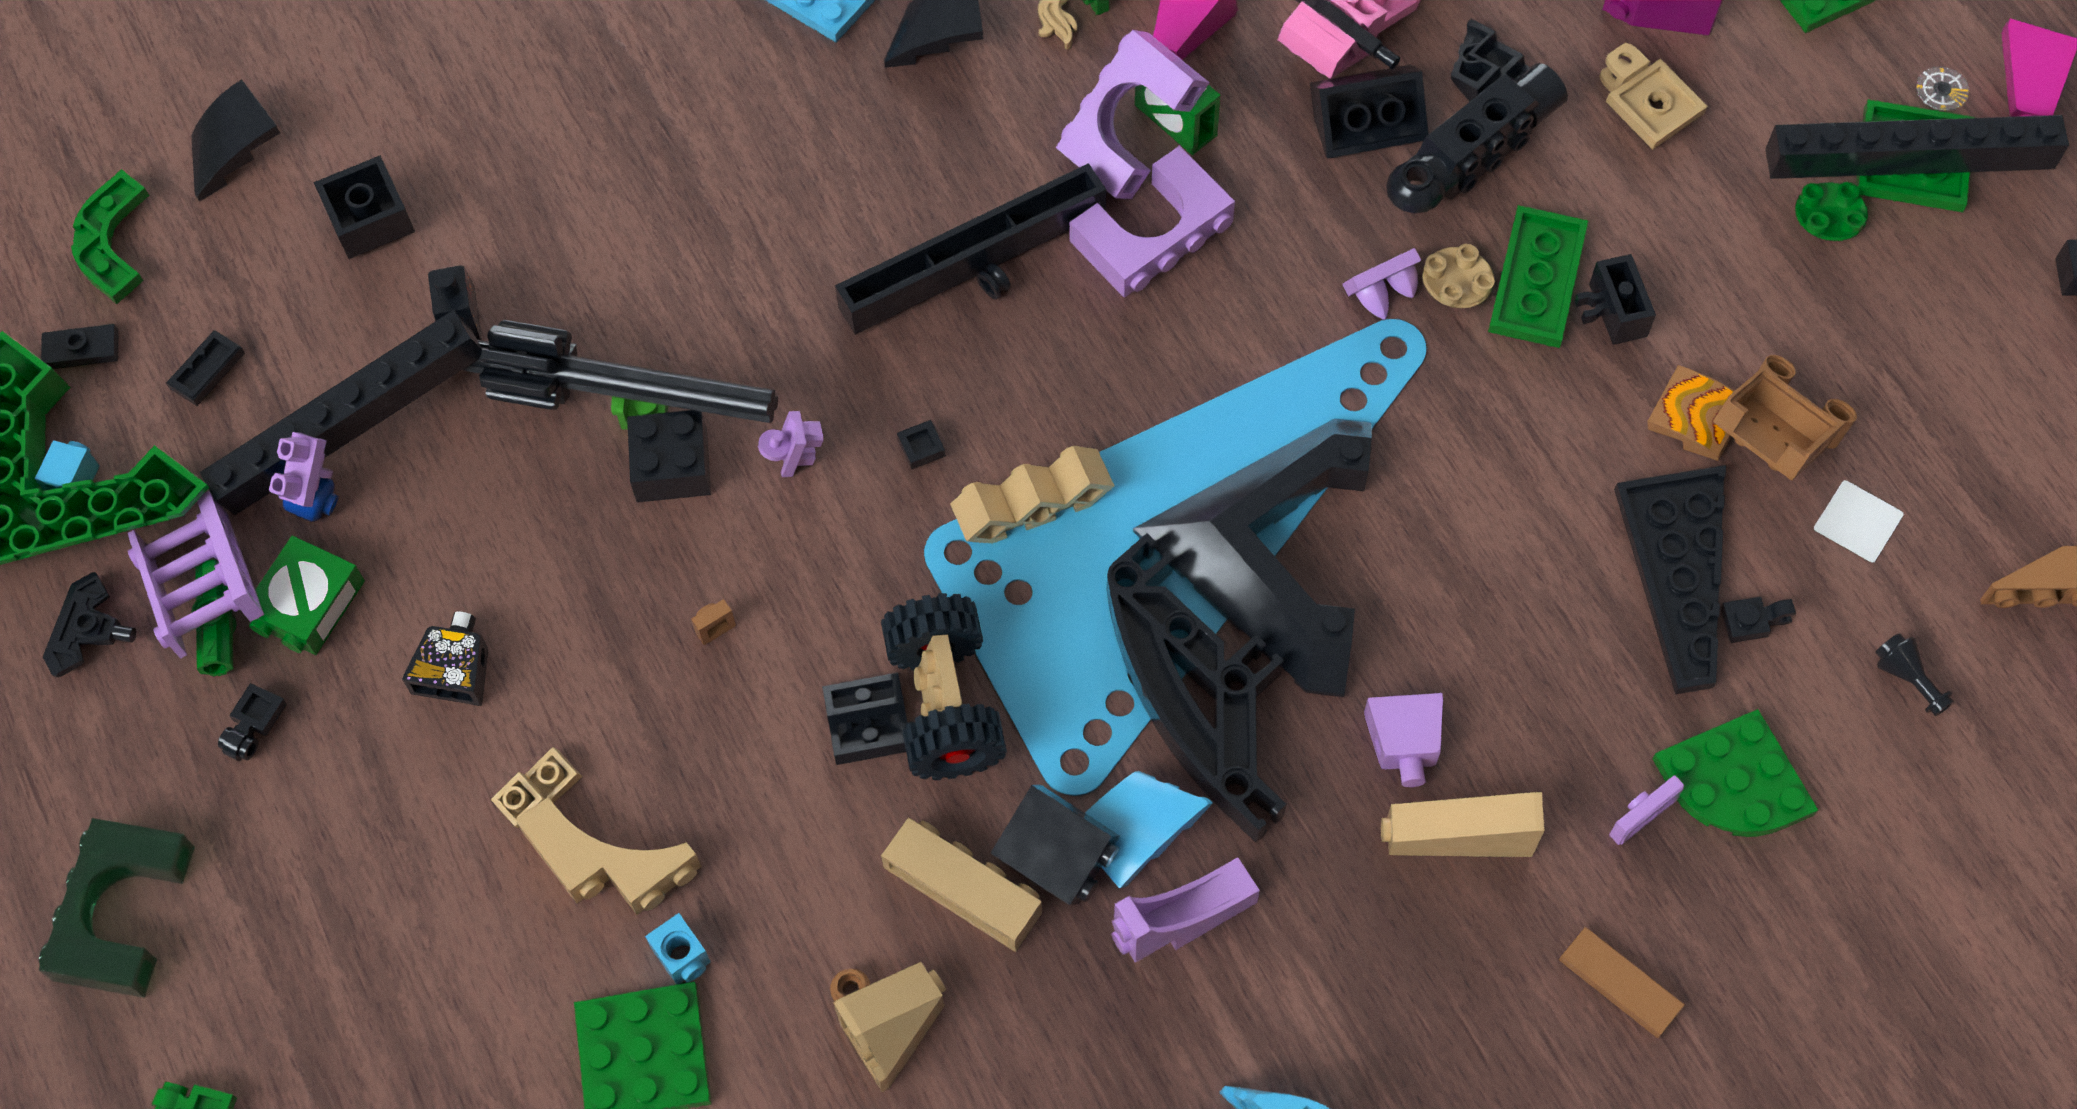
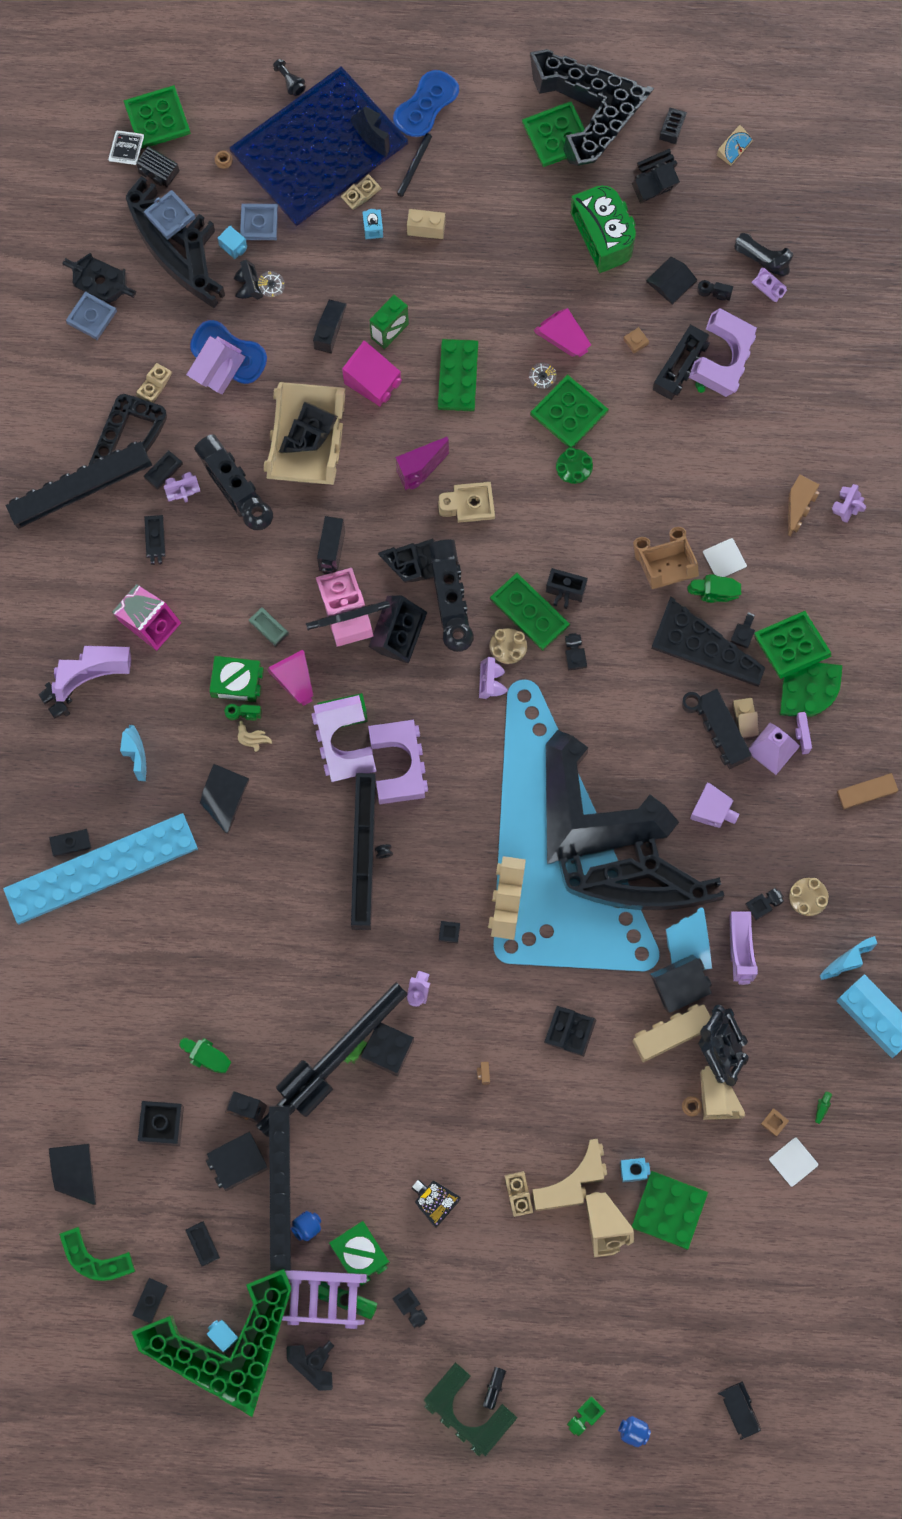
camera: 60 degrees left, 10 degrees up
(174, 927) = (494, 1388): none -> black axle
(302, 471) = (305, 1220): lavender hips -> none
(354, 335) = (236, 1161): none -> black brick
(509, 211) = (205, 1055): none -> green hinge
(548, 950) = (607, 1225): none -> tan slope
(947, 735) = (582, 990): black plate -> none
(977, 965) = (722, 1045): none -> black brick
(1284, 908) = (761, 906): none -> black plate
(1356, 983) = (808, 896): none -> tan dish
(1466, 826) = (770, 811): tan slope -> none
(1515, 386) = (575, 657): none -> black plate
(1559, 668) = (721, 726): none -> black hinge
(1584, 775) = (773, 748): none -> lavender slope
(1604, 703) = (746, 717): none -> tan slope
(1688, 412) = (636, 591): slope -> none
(1790, 702) = (792, 644): none -> green plate
(1793, 527) = (715, 588): none -> green hinge
(1903, 660) = (798, 586): black piece -> none
(1916, 146) = (571, 412): black brick -> none

